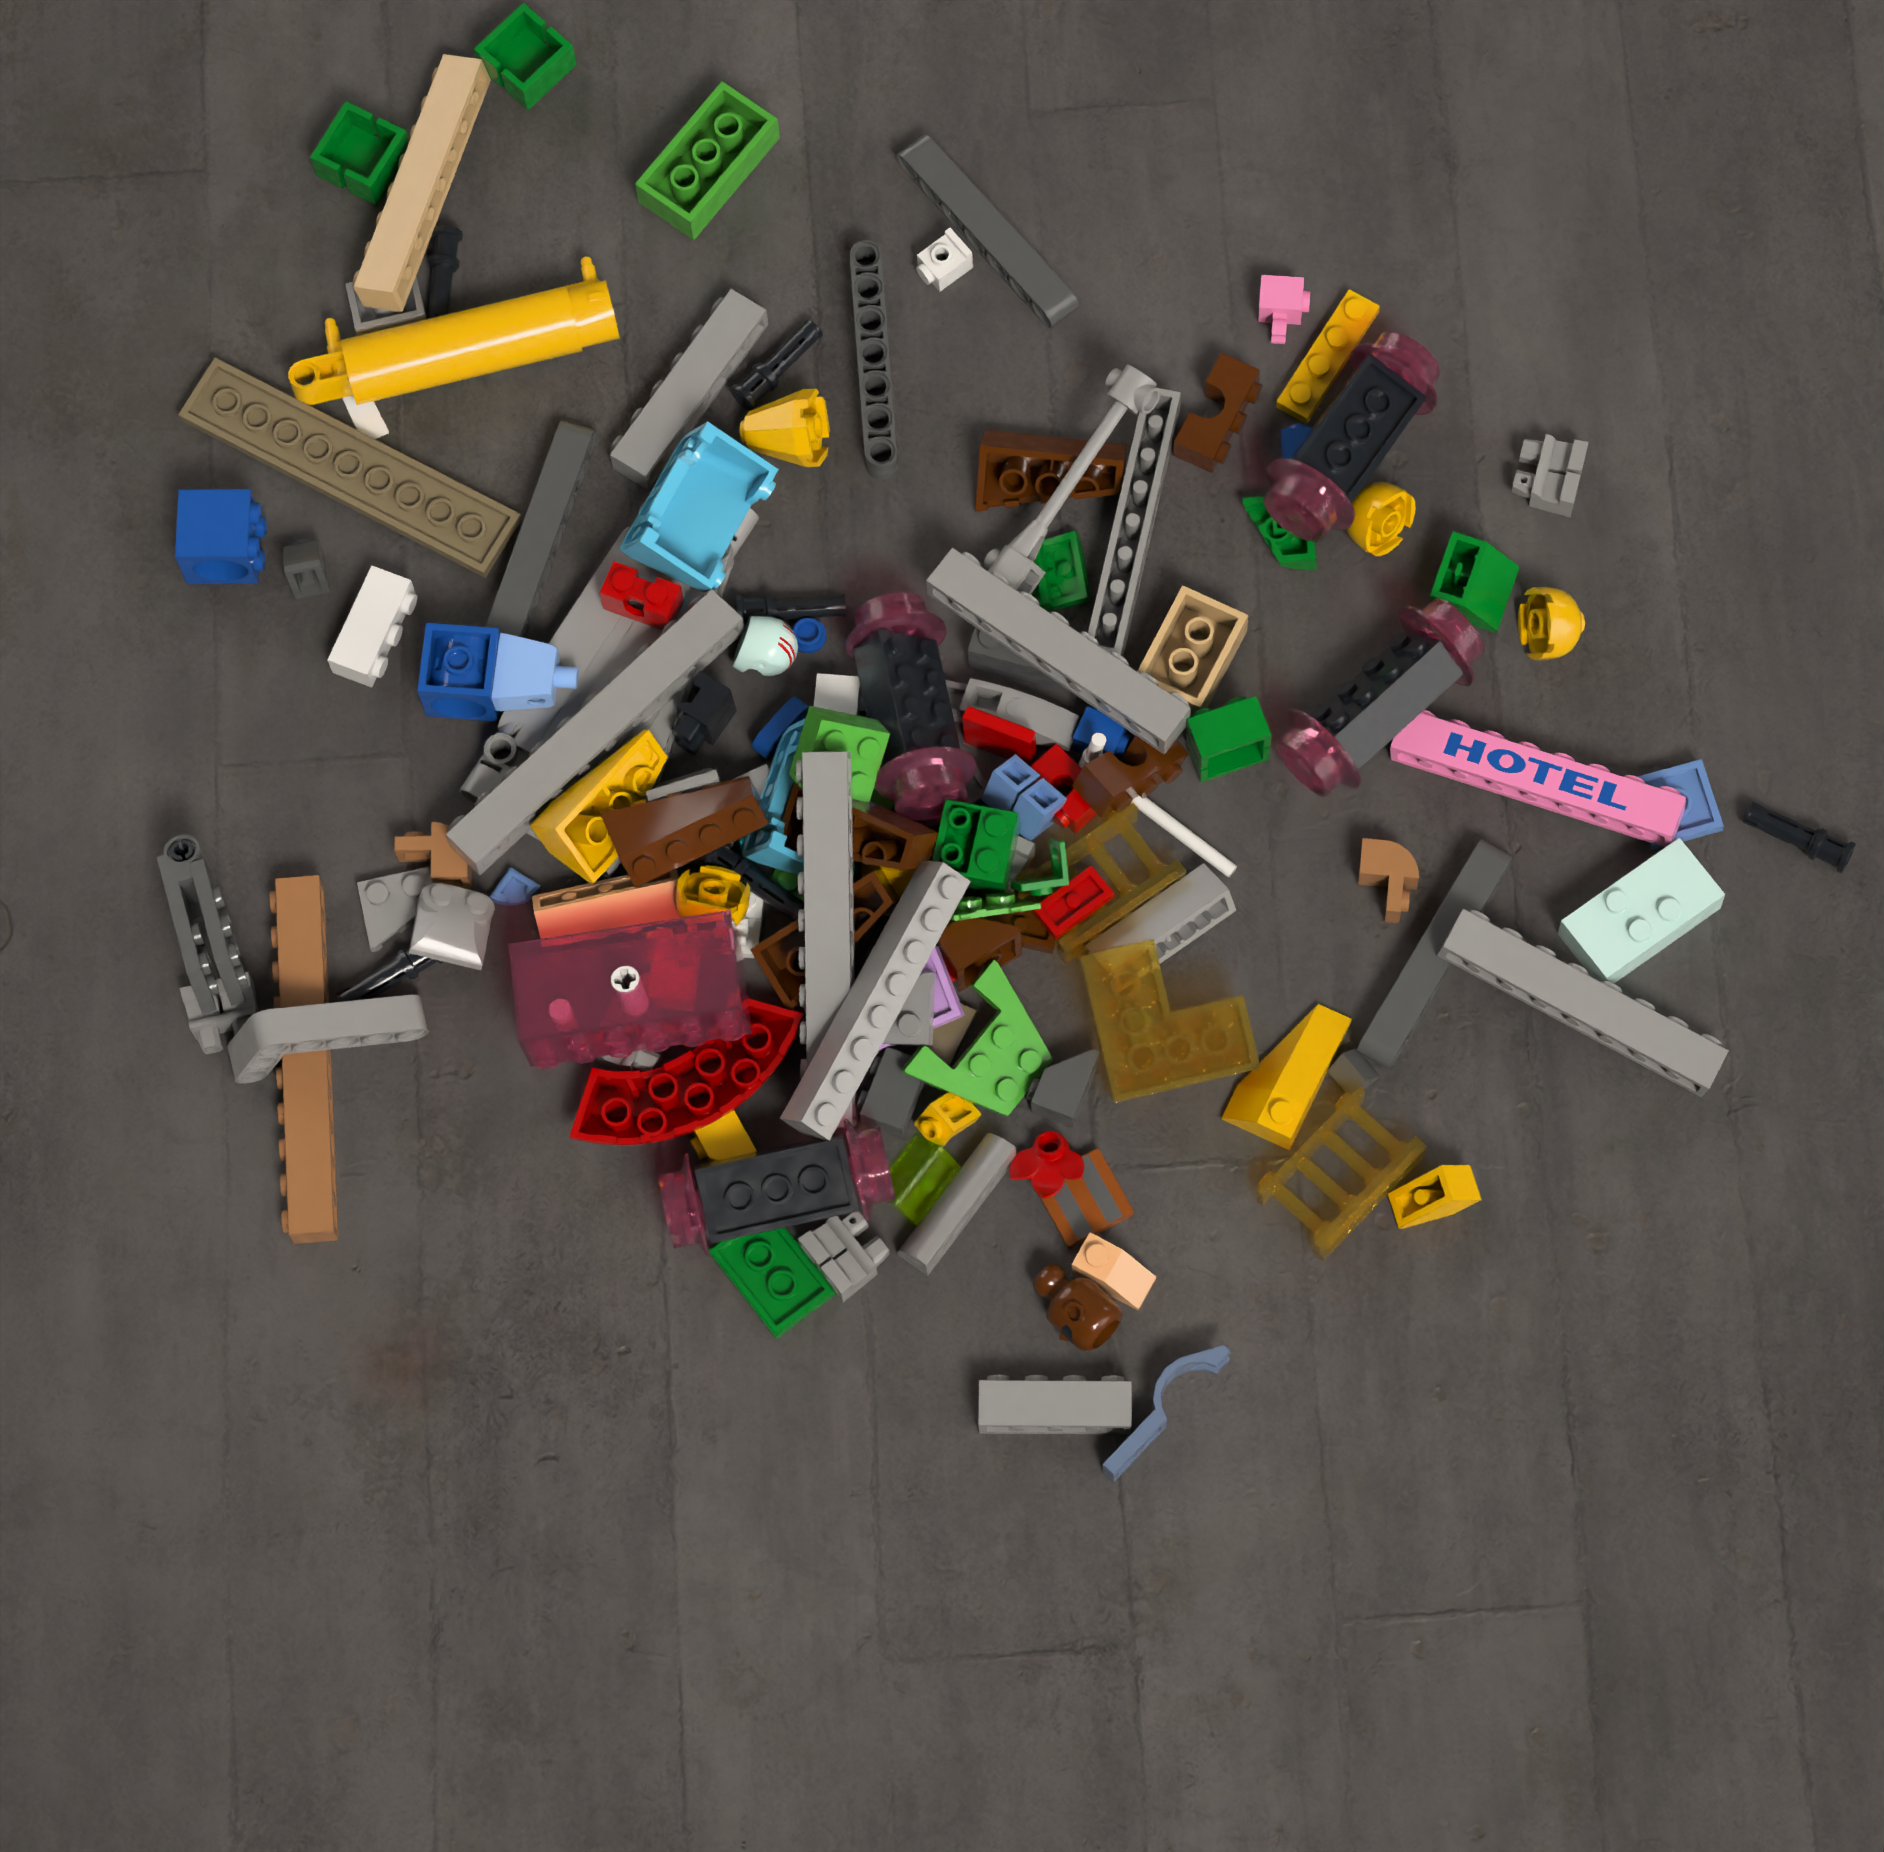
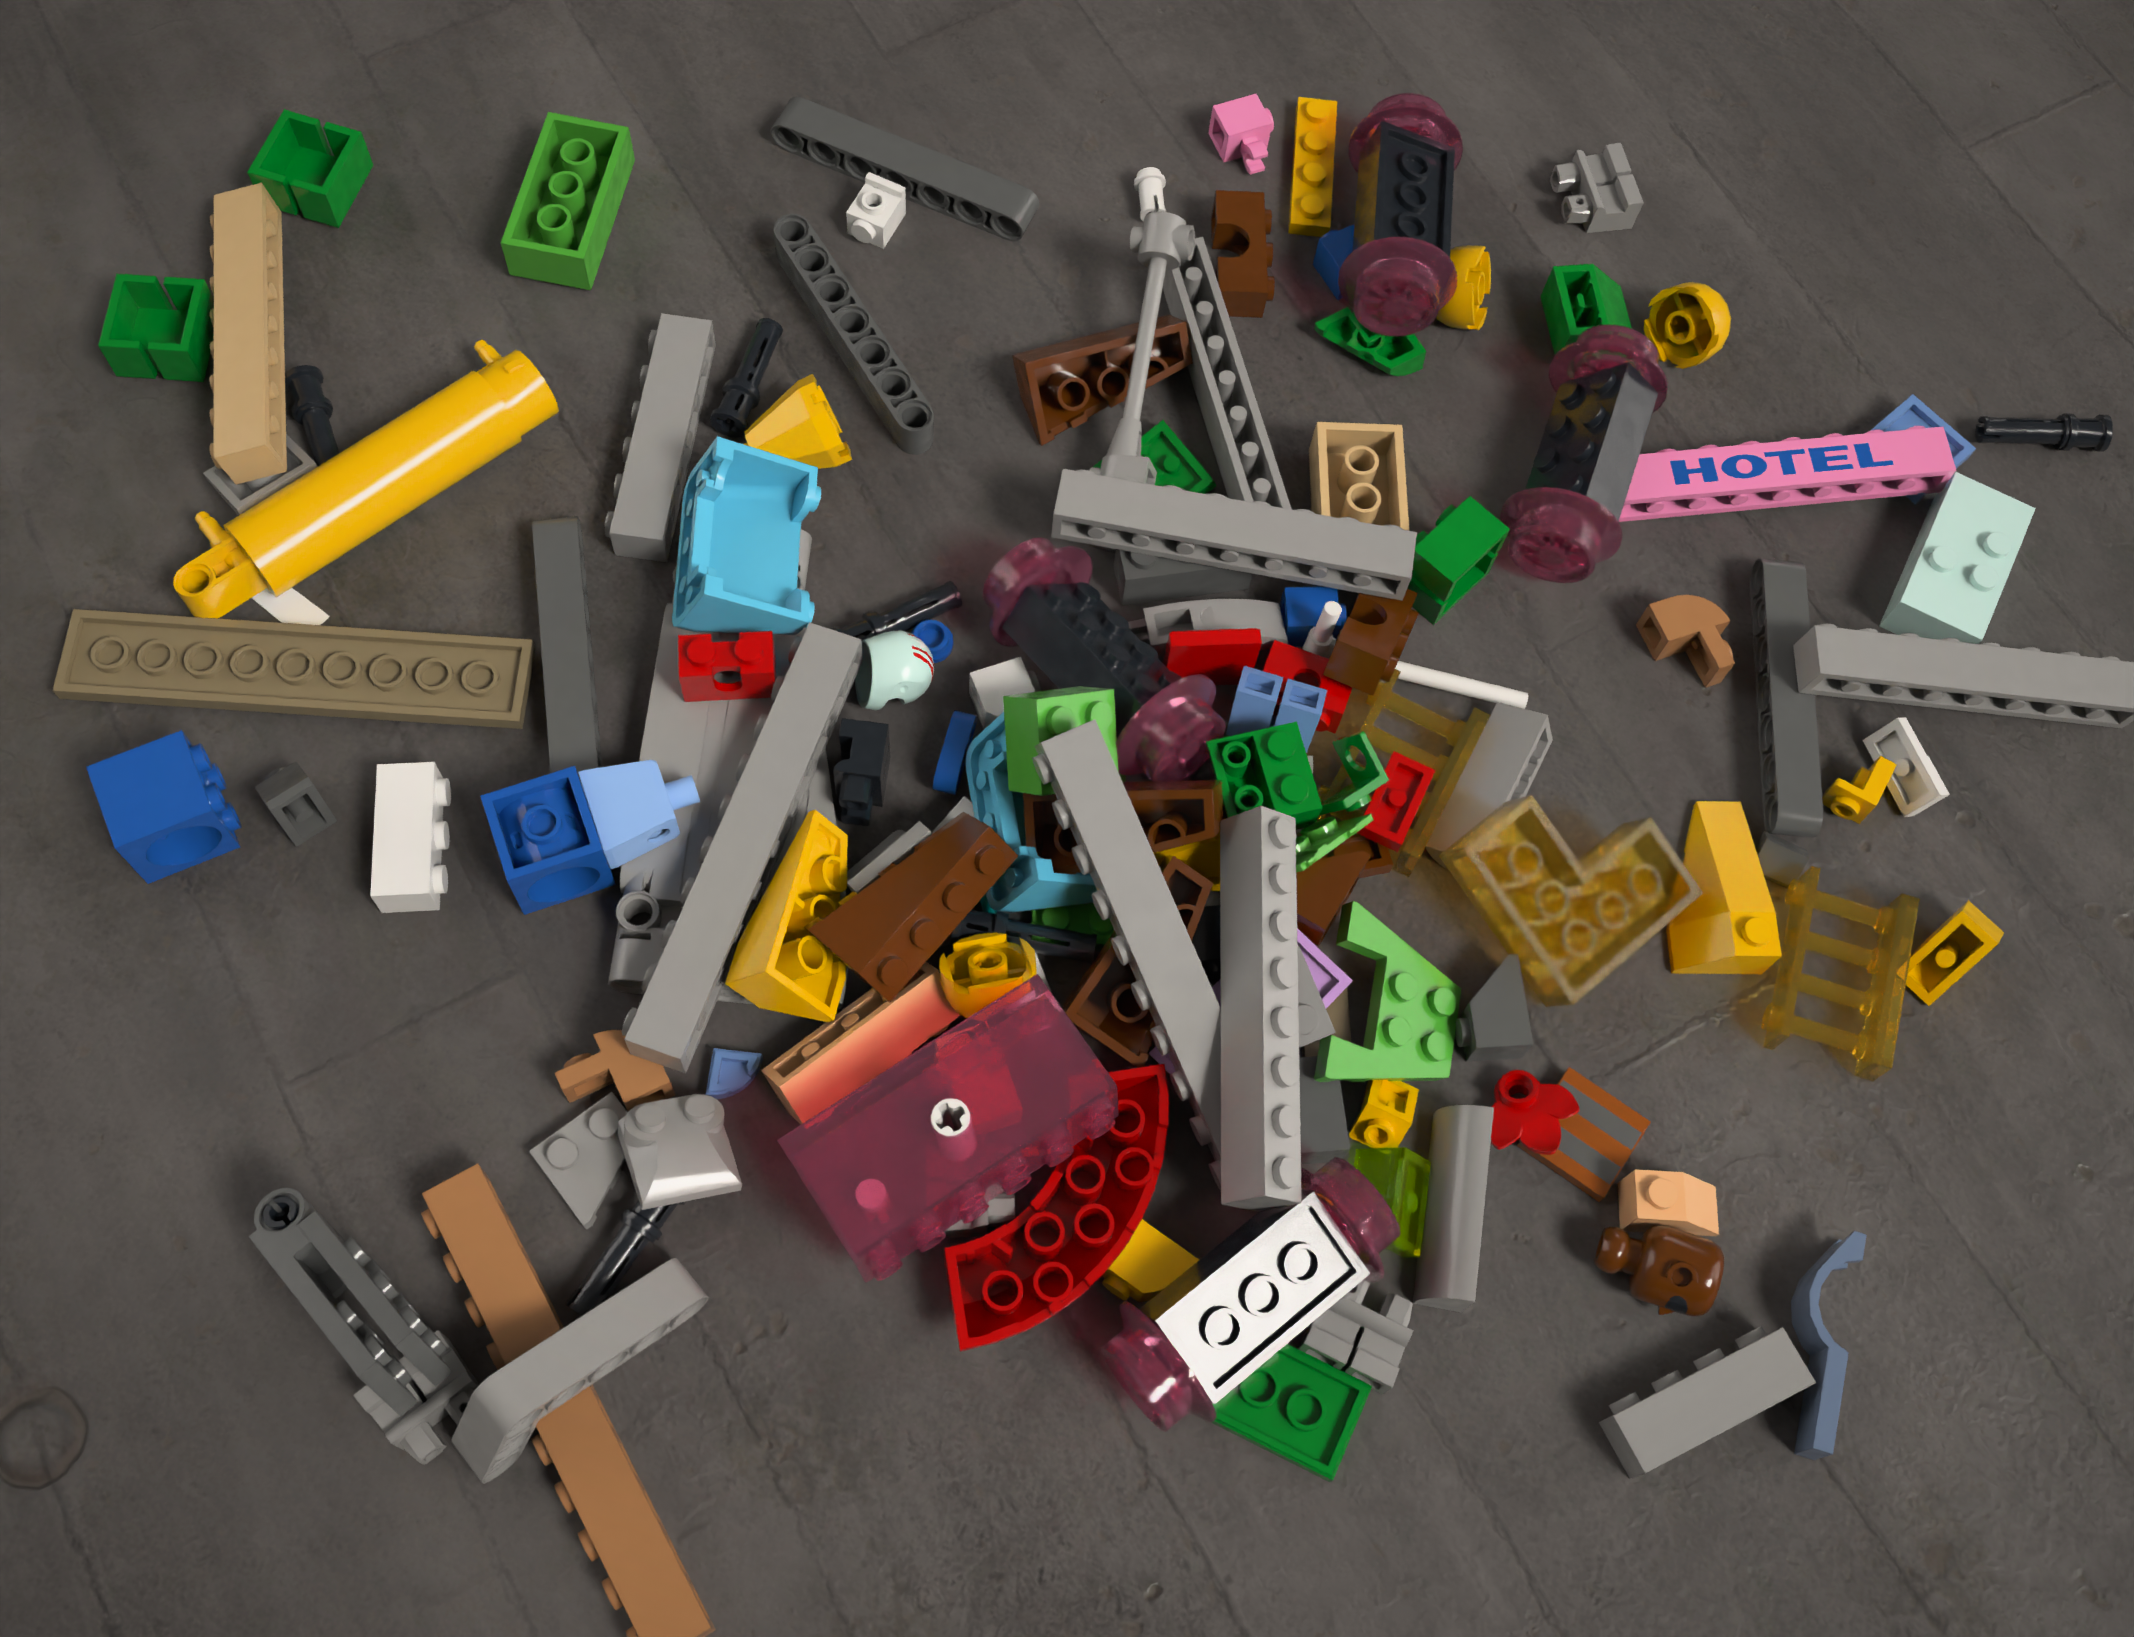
camera: 40 degrees left, 5 degrees down
(1176, 330) = (1150, 188): none -> white pin
(1451, 1051) = (1861, 796): none -> yellow bracket
(1493, 1048) = (1915, 780): none -> white plate

